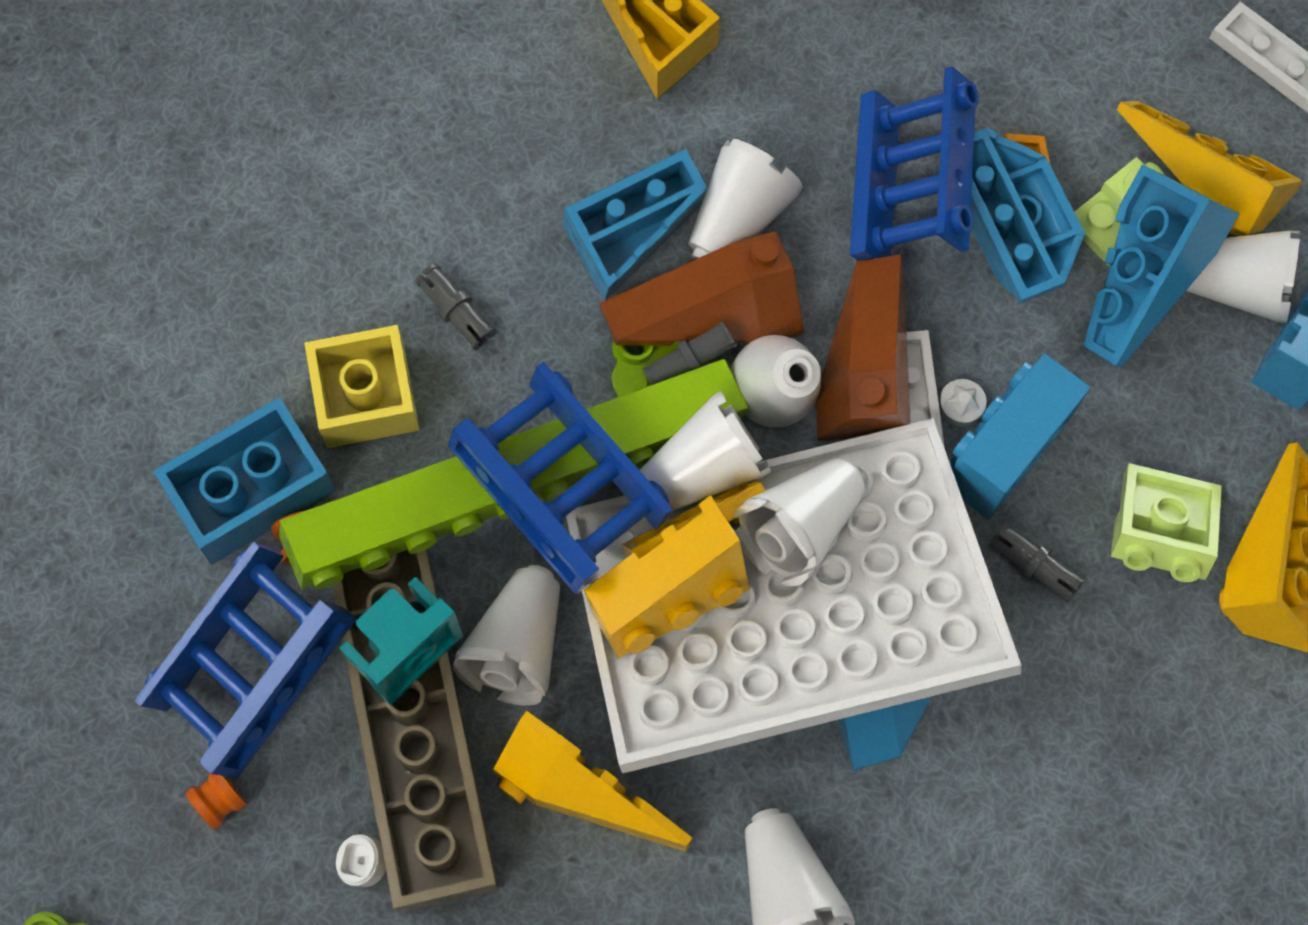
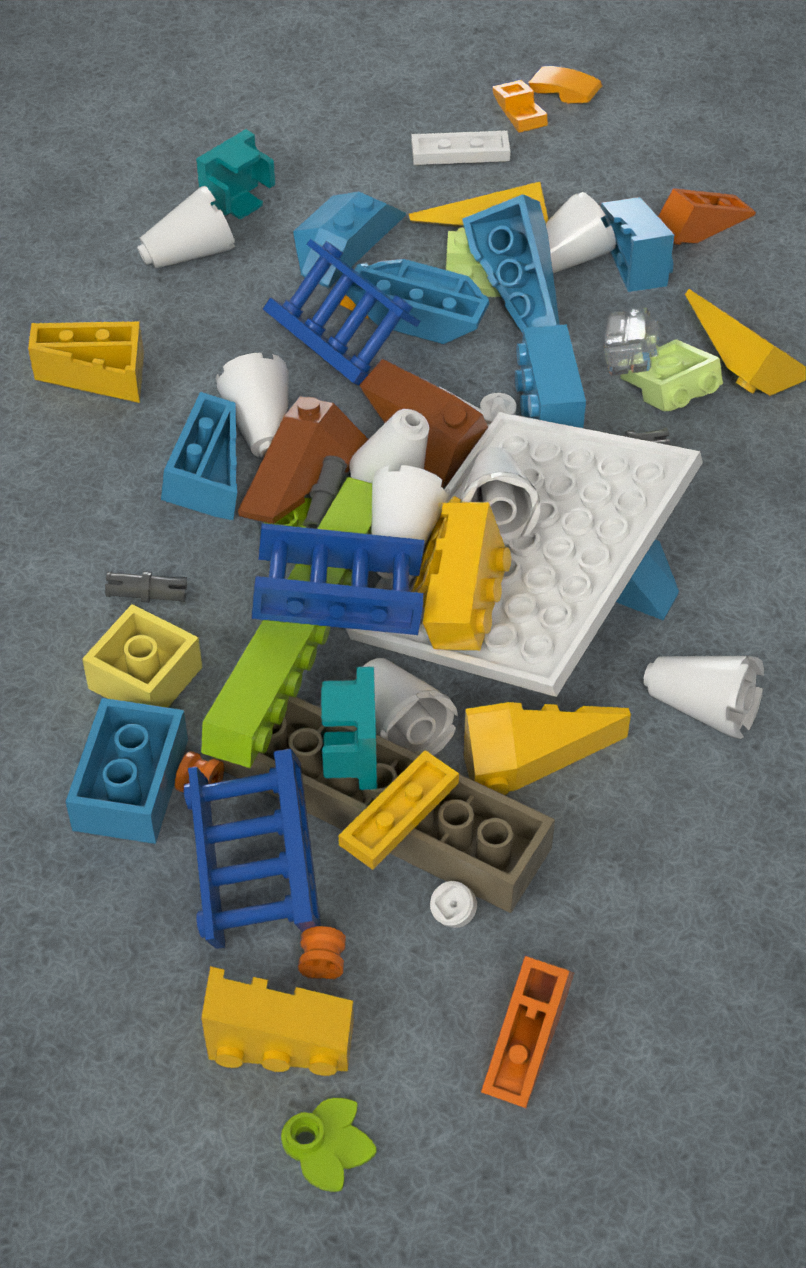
camera: 45 degrees left, 20 degrees down
(107, 829) = (274, 1027): none -> yellow wedge
(373, 748) = (398, 809): none -> yellow plate
(1045, 64) = (349, 223): none -> dark azure wedge
(1161, 451) = (631, 341): none -> clear brick

